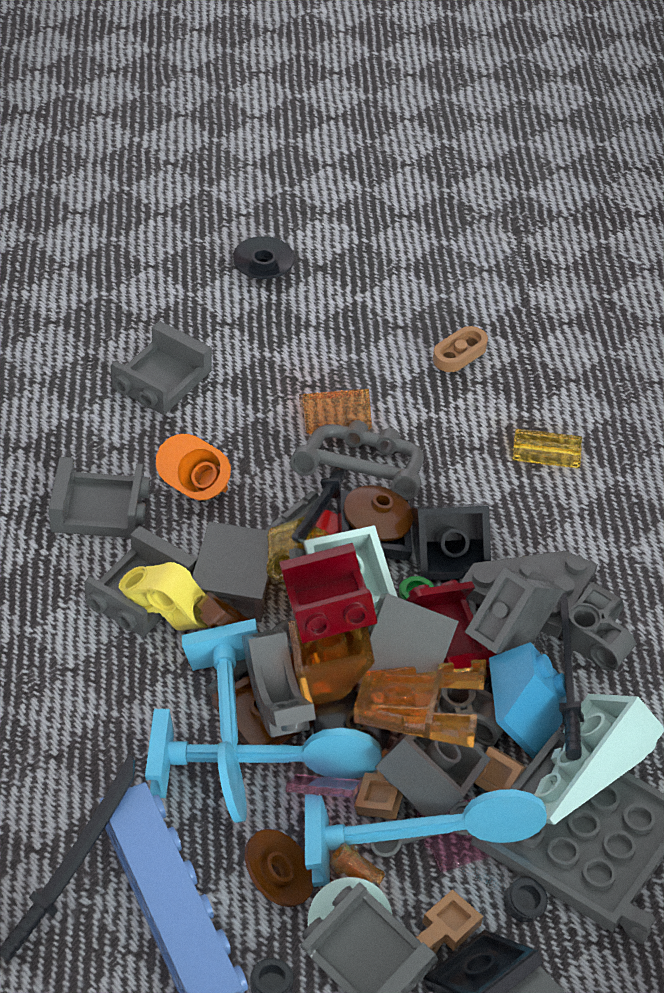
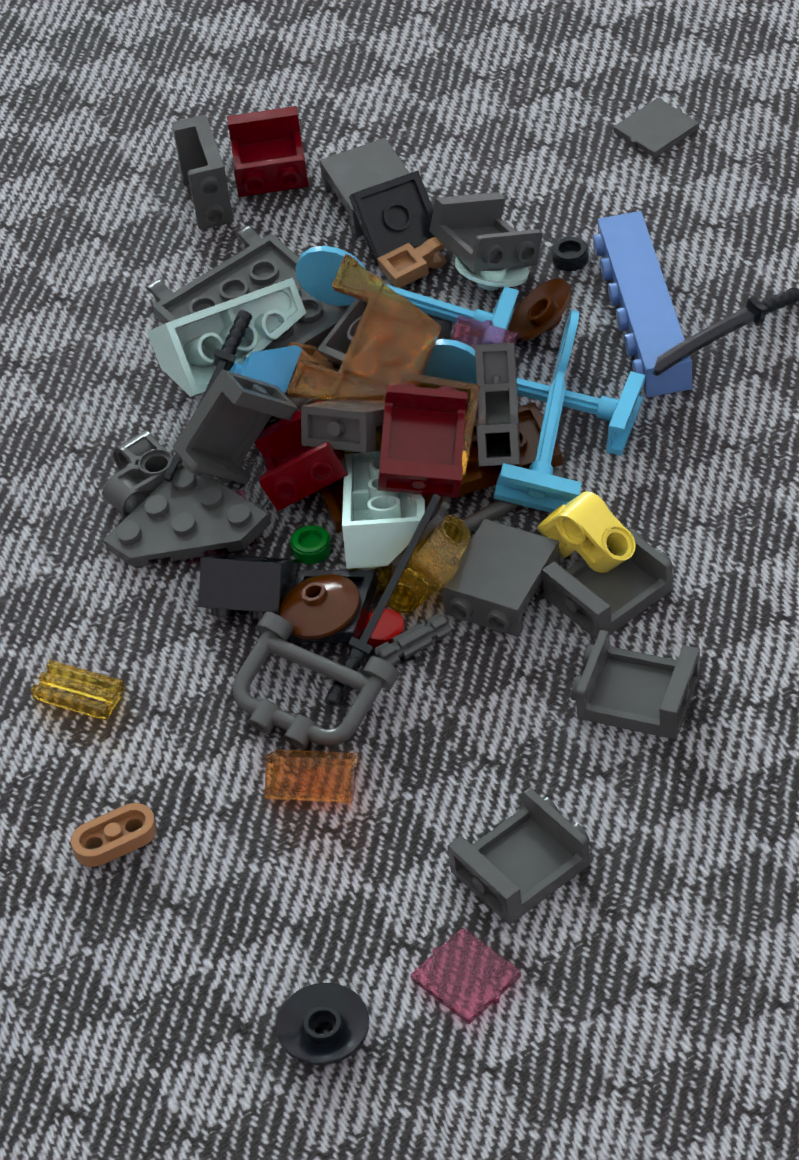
camera: 155 degrees left, 0 degrees up
(181, 309) = (466, 975): none -> clear pink piece
(193, 467) = (510, 686): orange piece -> none
(218, 613) = (527, 505): reddish brown plate -> none
(351, 863) = (476, 299): clear orange pin -> none

